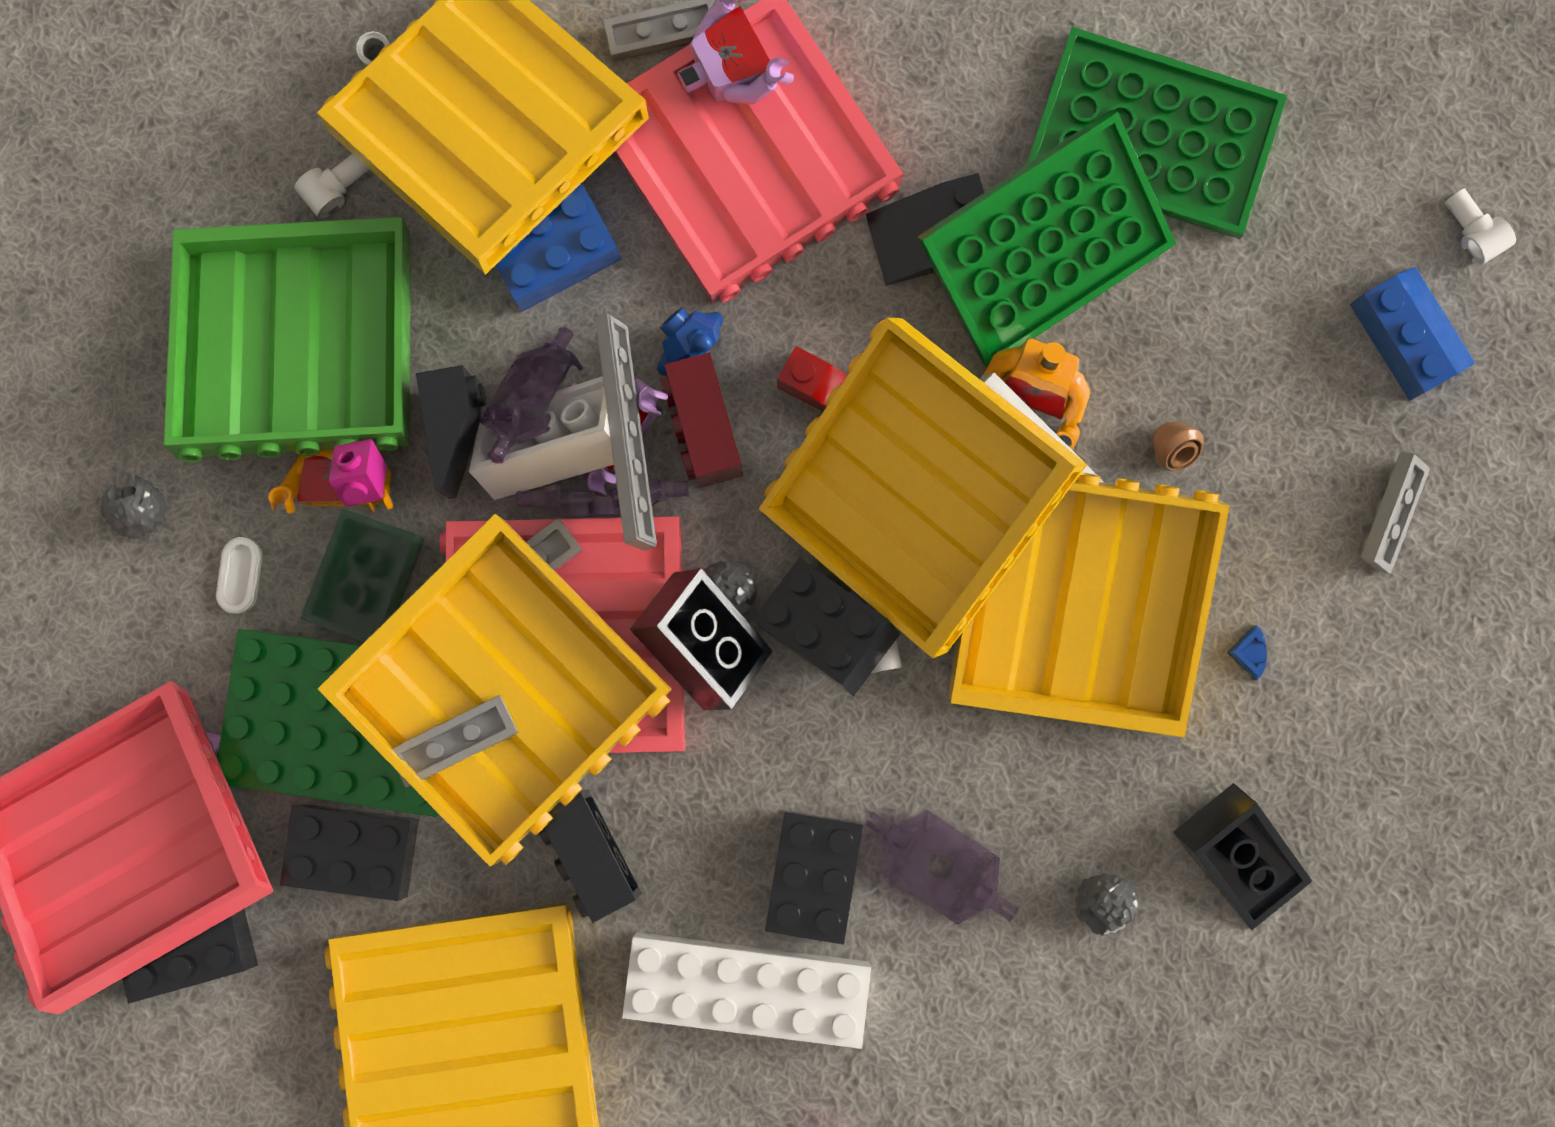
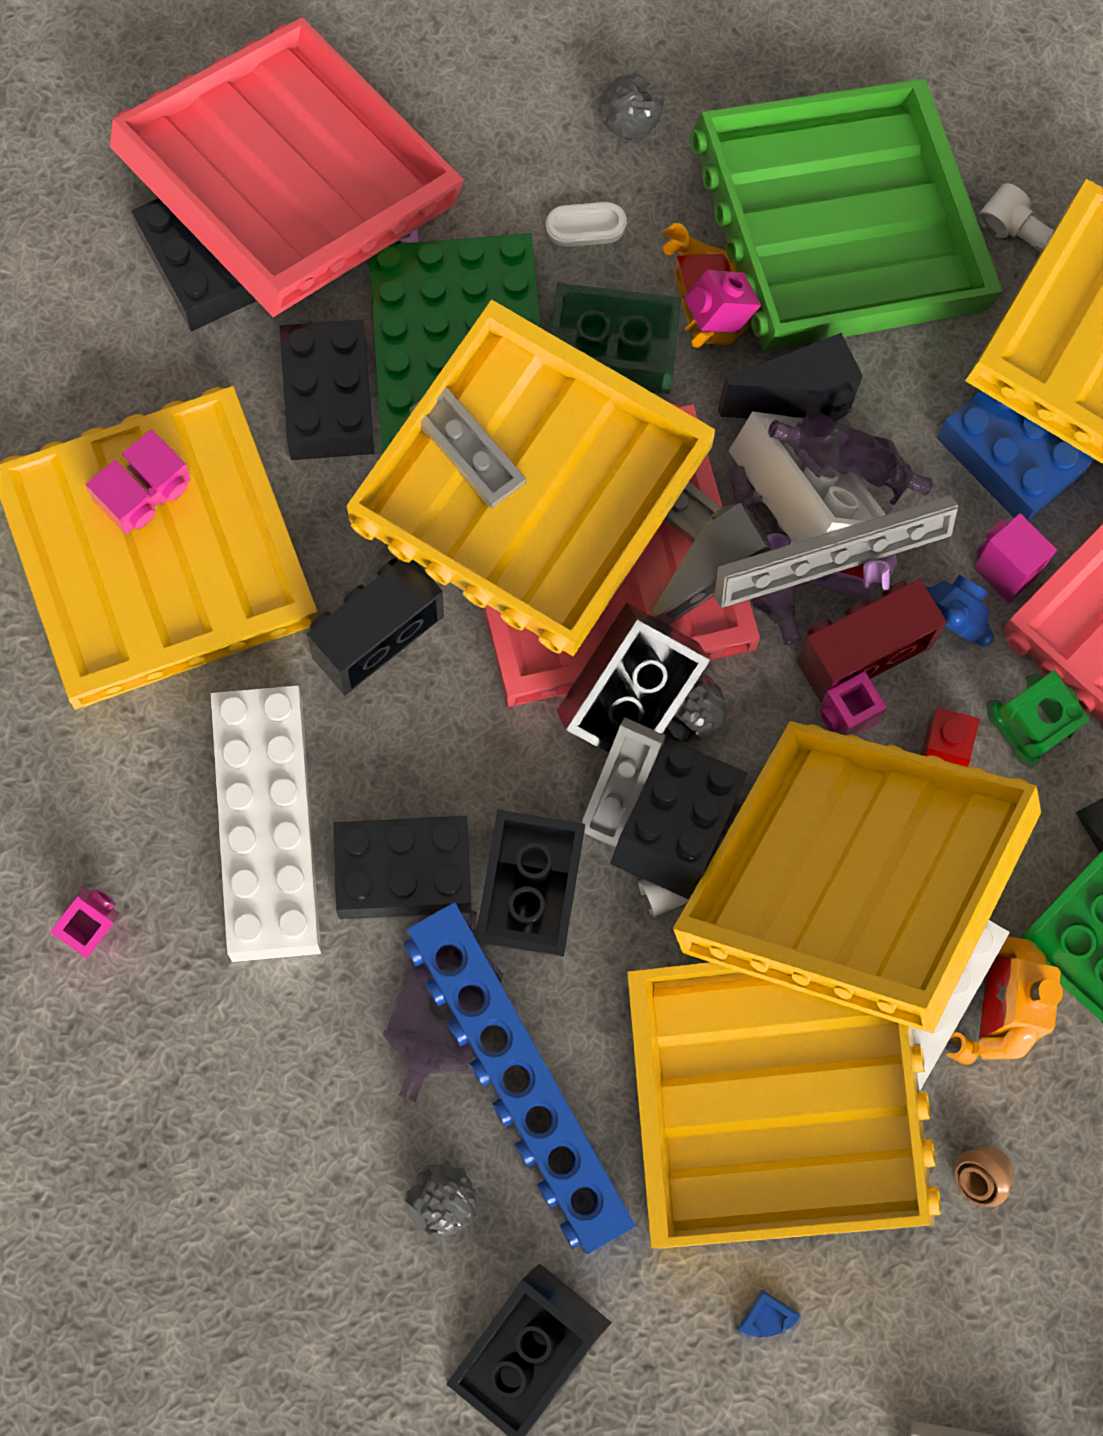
camera: 70 degrees right, 10 degrees down
(417, 1066) = (155, 468): none -> dark pink piece
(599, 533) = (726, 539): none -> dark grey slope
(655, 276) = (1013, 556): none -> dark pink brick
(758, 452) = (852, 706): none -> dark pink brick
(784, 669) = (621, 780): none -> light grey plate
(804, 310) = (1020, 721): none -> green piece
(855, 769) = (530, 883): none -> black slope
(1148, 767) = (608, 1215): none -> blue brick

